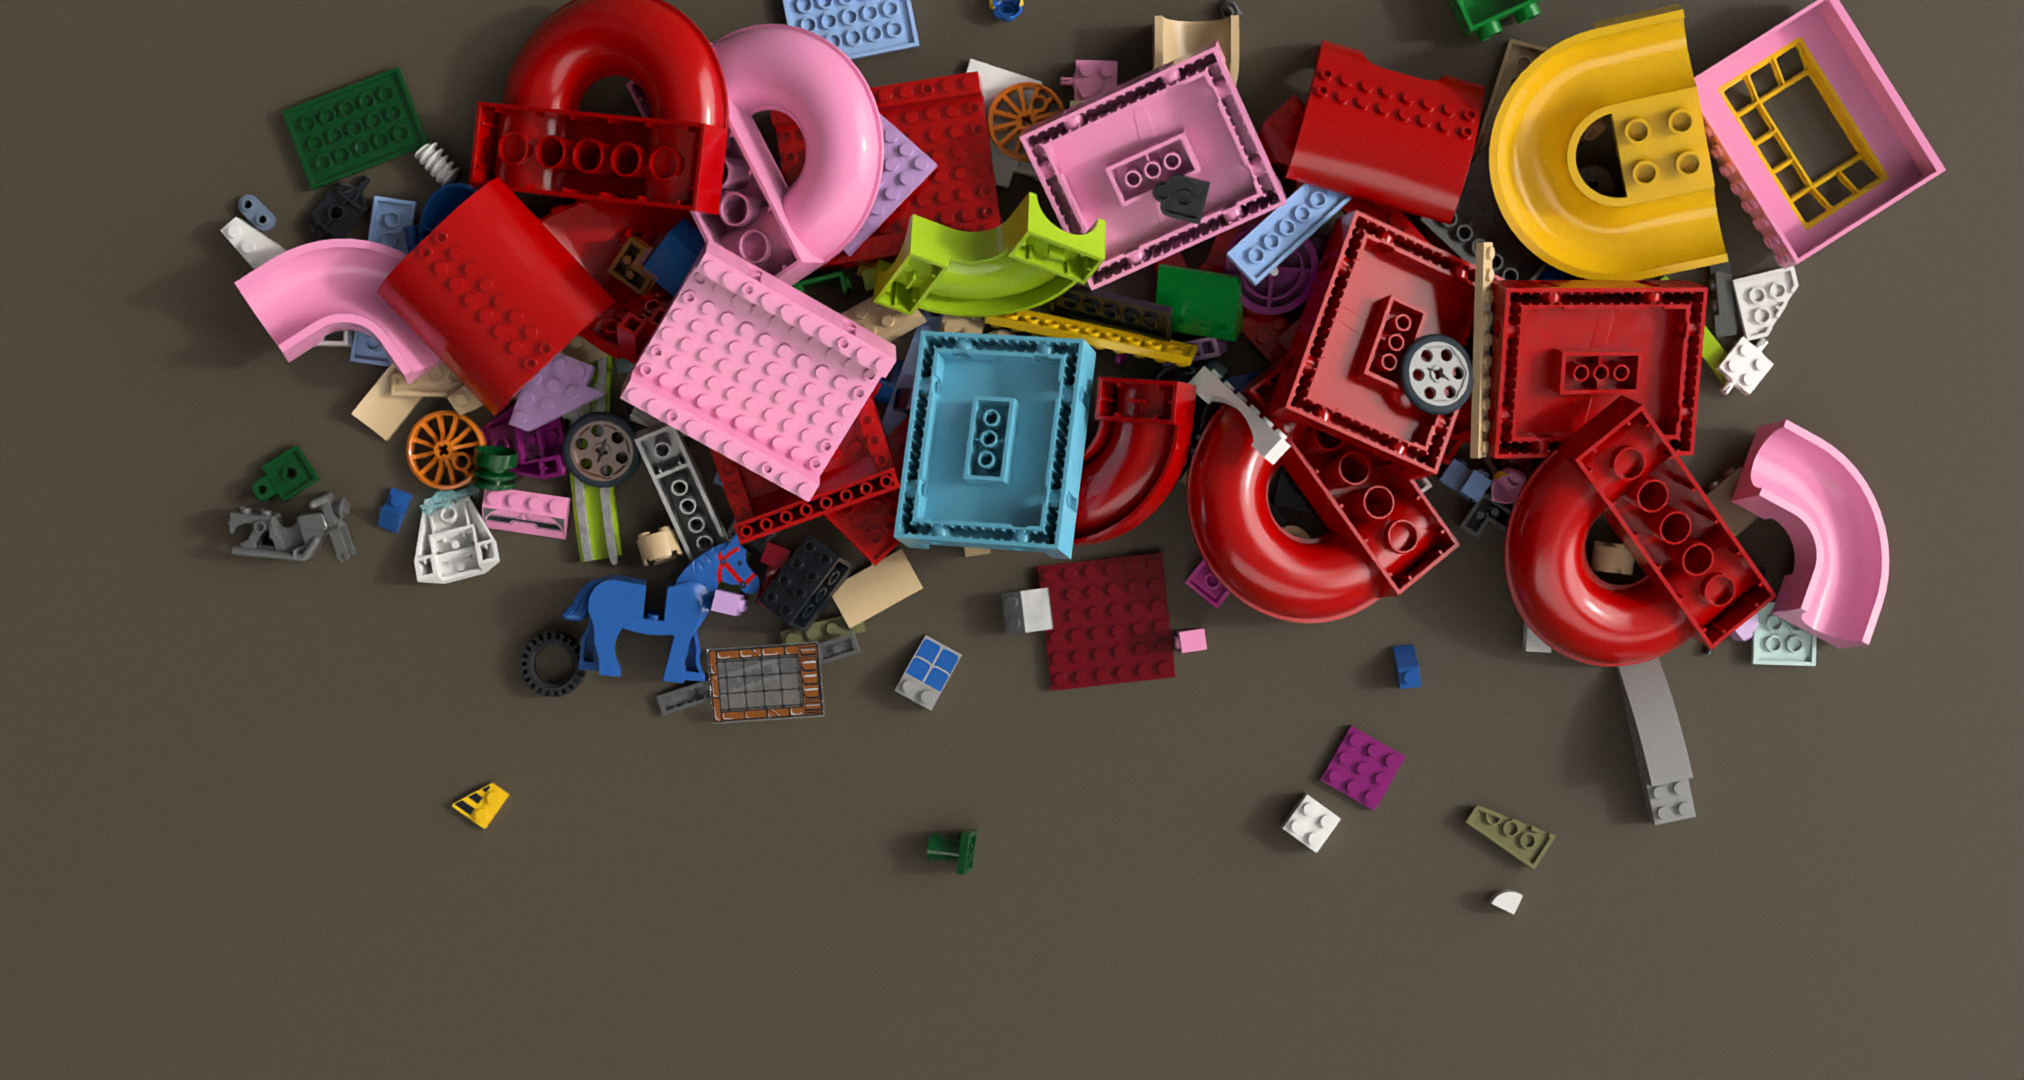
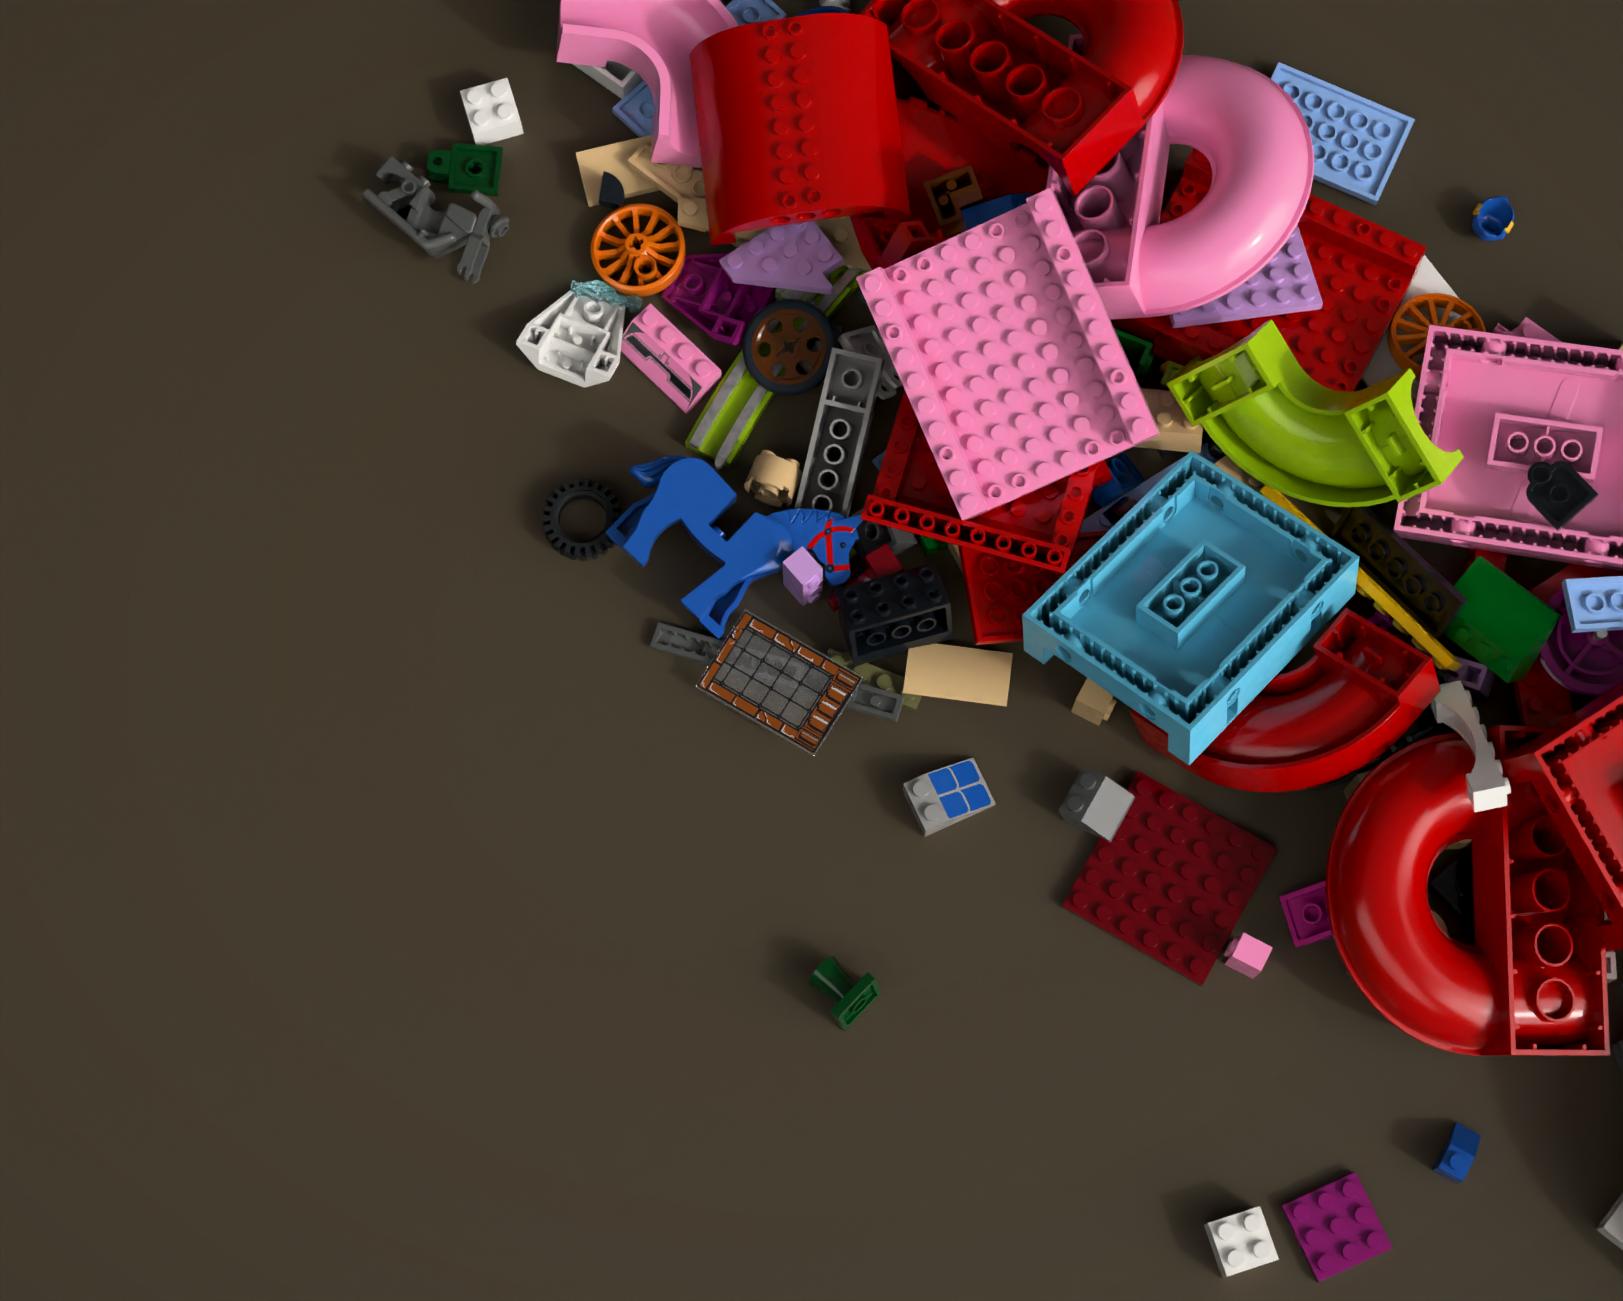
camera: 35 degrees right, 15 degrees down
(269, 424) = (491, 112): none -> white brick
(394, 511) = (542, 272): blue slope -> none
(397, 424) = (611, 192): none -> black brick
(482, 804) = (406, 603): yellow wing -> none
(494, 468) = (672, 291): dark green wheel -> none

